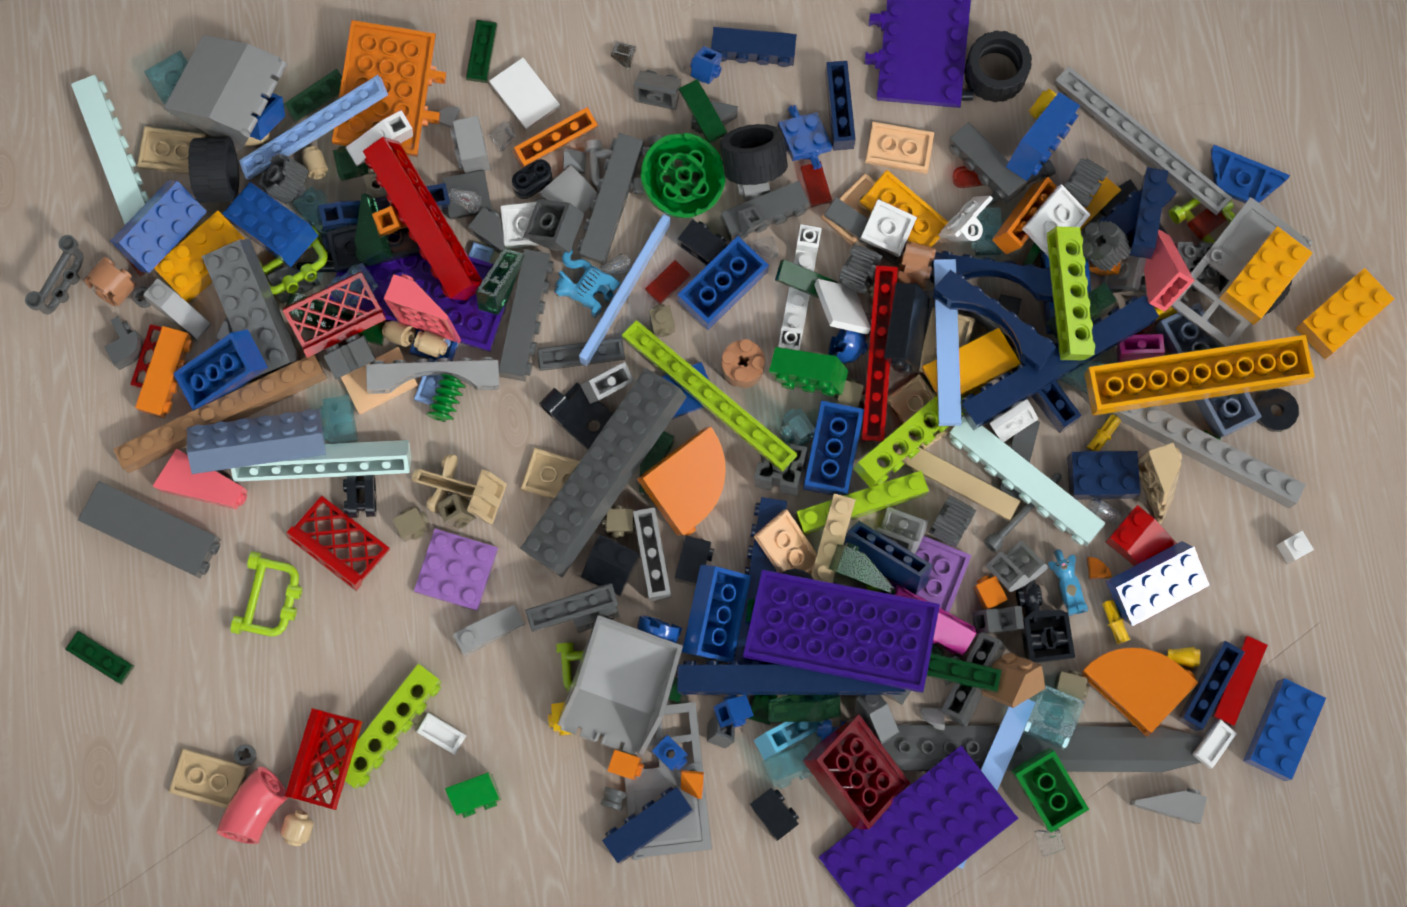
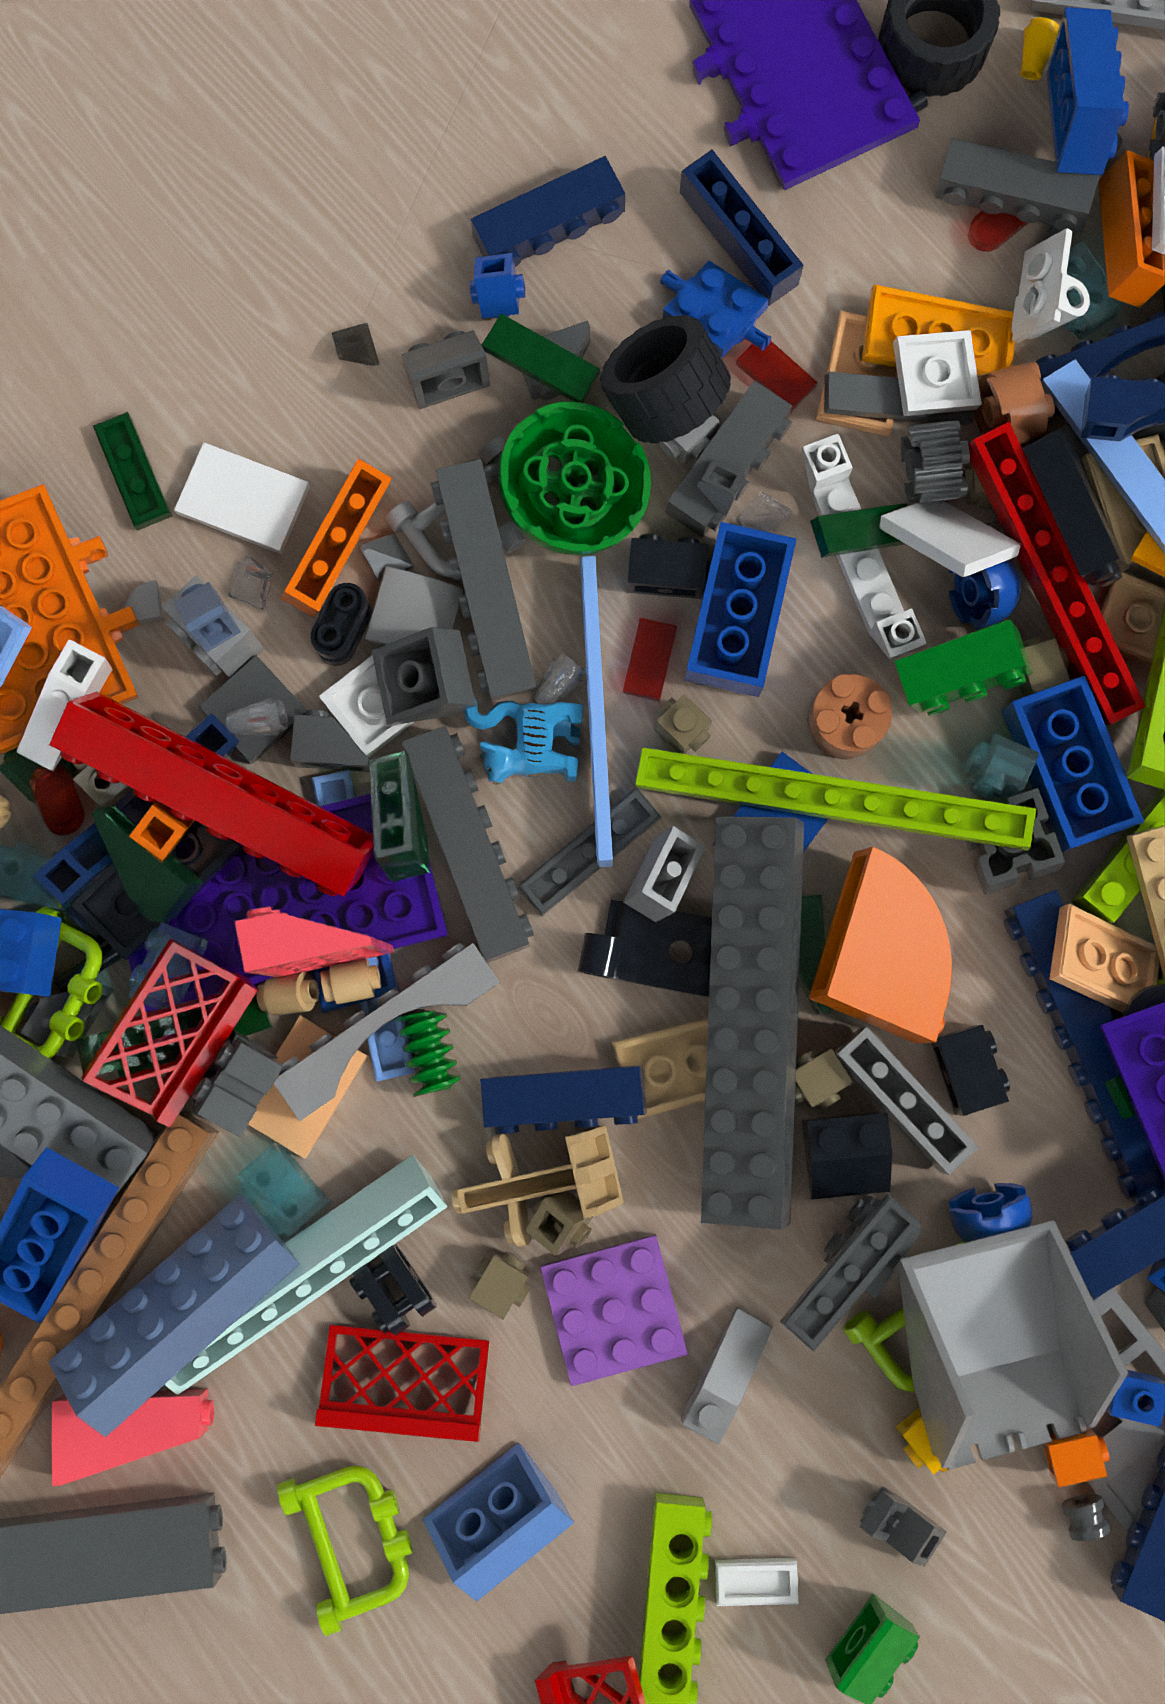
camera: 30 degrees left, 5 degrees up
(340, 630) = (497, 1522): none -> medium blue slope
(350, 181) = (57, 800): none -> clear red tile
(469, 136) = (206, 616): none -> sand blue slope
(495, 456) = (563, 1096): none -> dark blue brick
(523, 746) = (901, 1526): none -> dark grey brick
(716, 613) = (1065, 1134): blue brick -> none
(899, 147) = (865, 242): light nougat tile -> none

